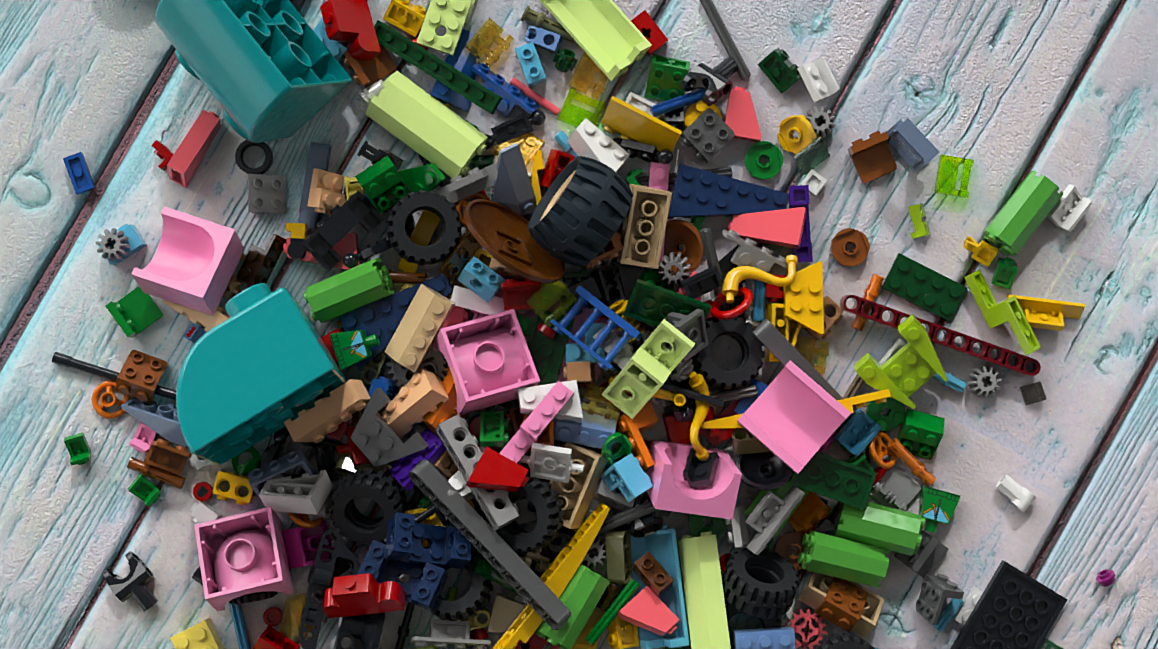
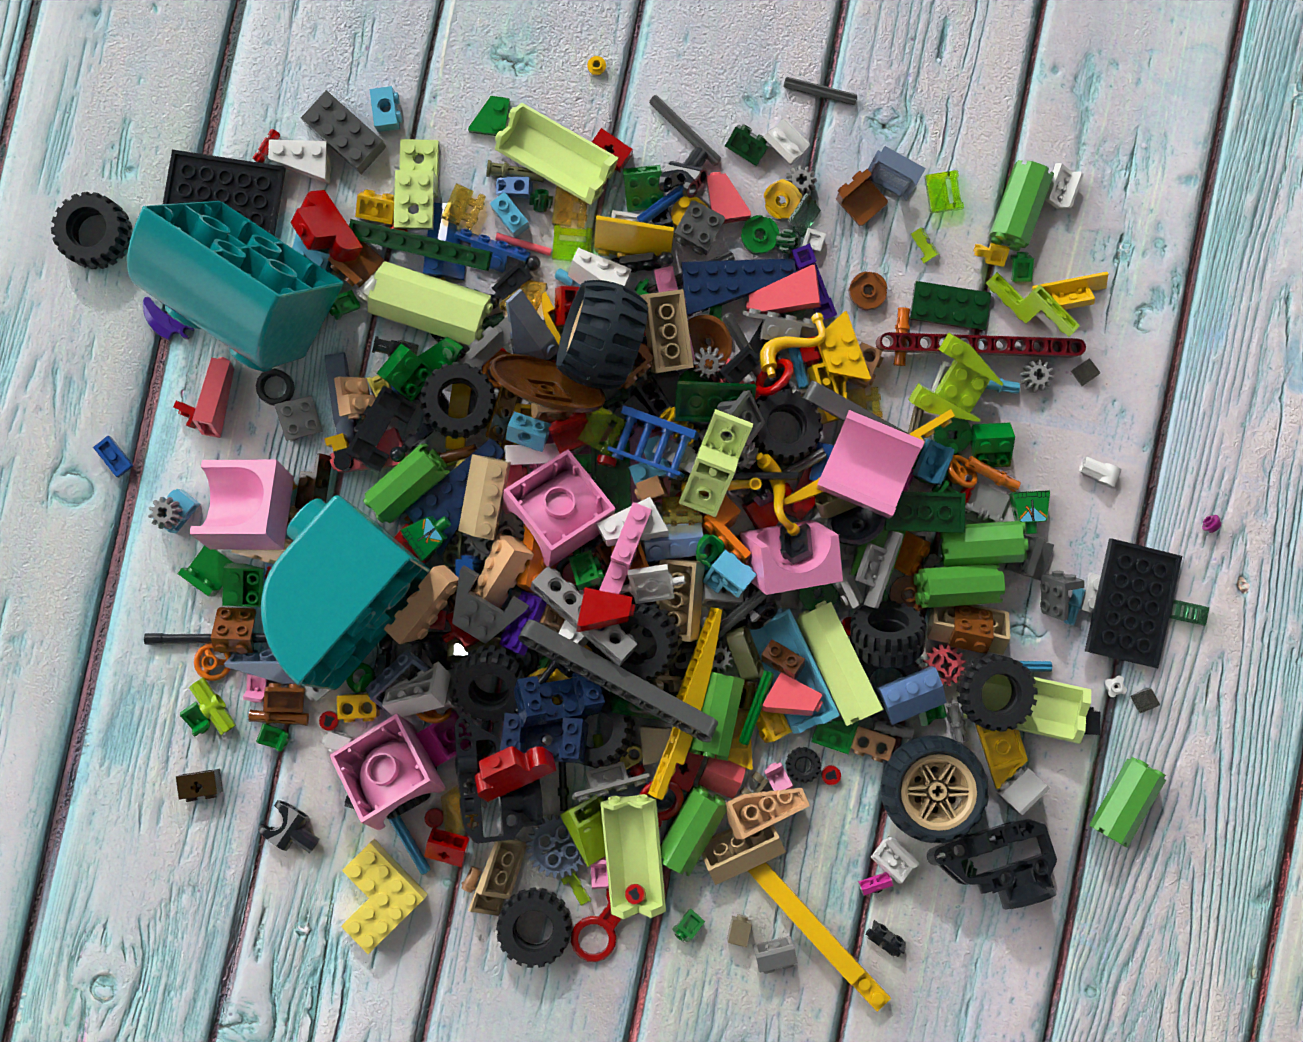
camera: 15 degrees left, 0 degrees up
(72, 512) = (209, 780): none -> dark brown brick
(97, 441) = (212, 706): none -> lime piece
(163, 336) = (242, 585): none -> green slope
(165, 58) = (161, 322): none -> dark purple piece
(345, 99) = (344, 304): none -> green bracket
(787, 175) = (787, 241): none -> dark green gear
(867, 40) = (820, 90): none -> dark grey axle

